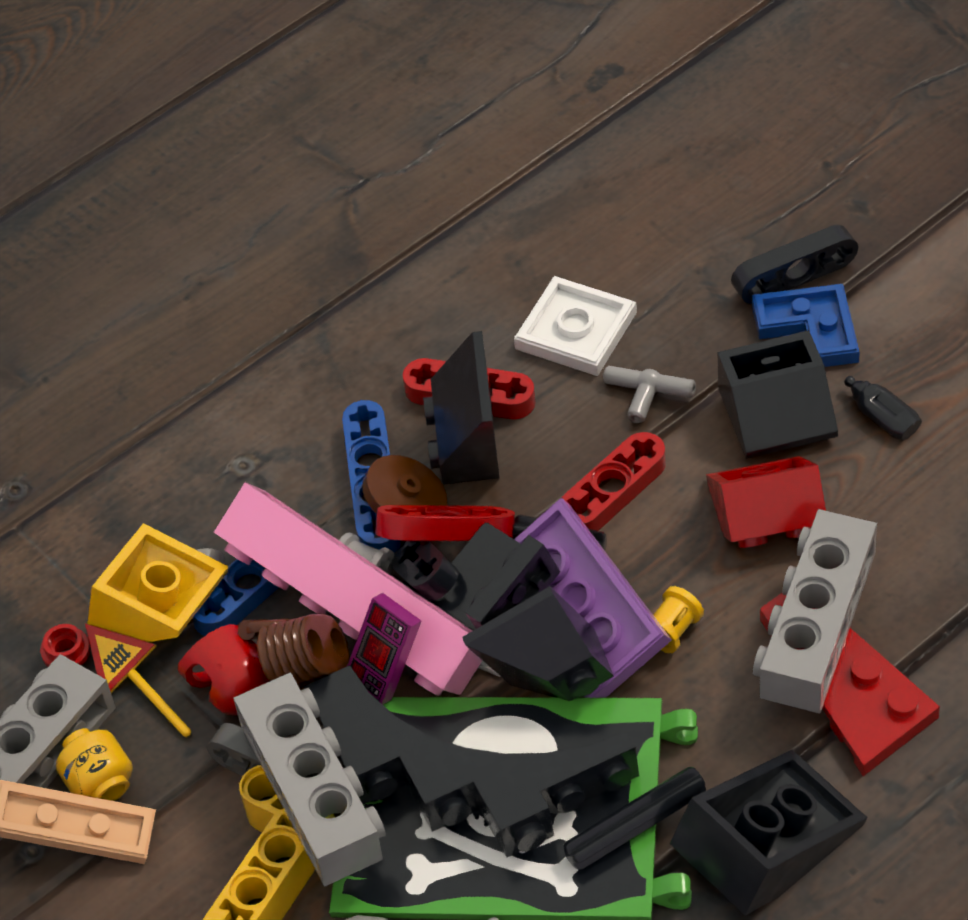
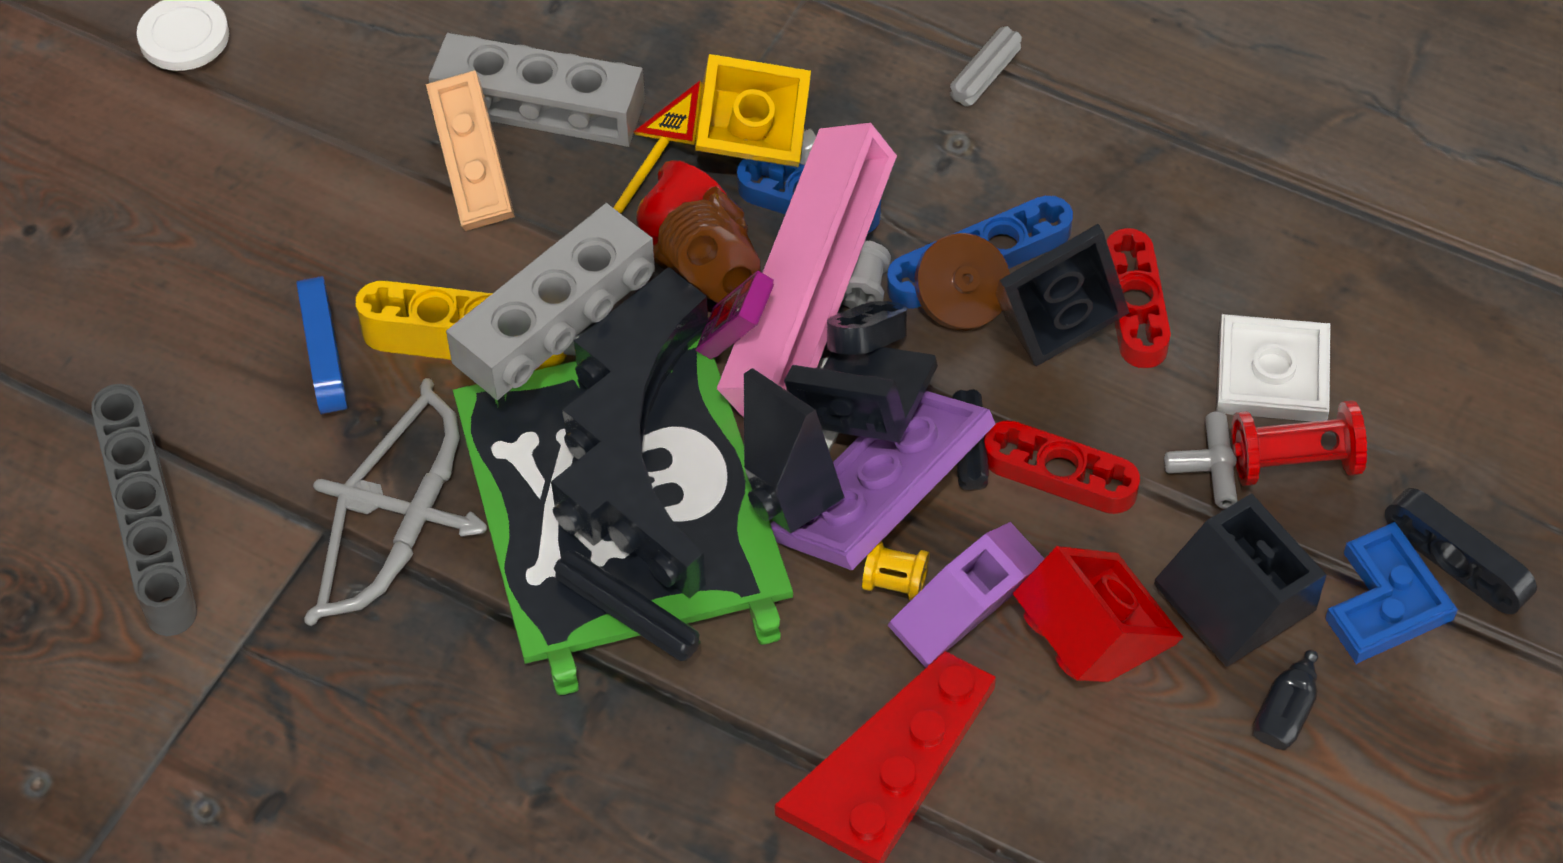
camera: 65 degrees right, 5 degrees up
(62, 638) = (671, 77): red plate -> none
(94, 764) = (540, 146): yellow head -> none
(178, 418) = (985, 66): none -> light grey axle
(439, 521) = (912, 301): red beam -> none
(672, 296) = (1298, 443): none -> red hose
(719, 572) = (965, 592): none -> medium lavender slope
(764, 829) = (662, 733): black slope -> none
(828, 577) = (963, 714): light grey brick -> none

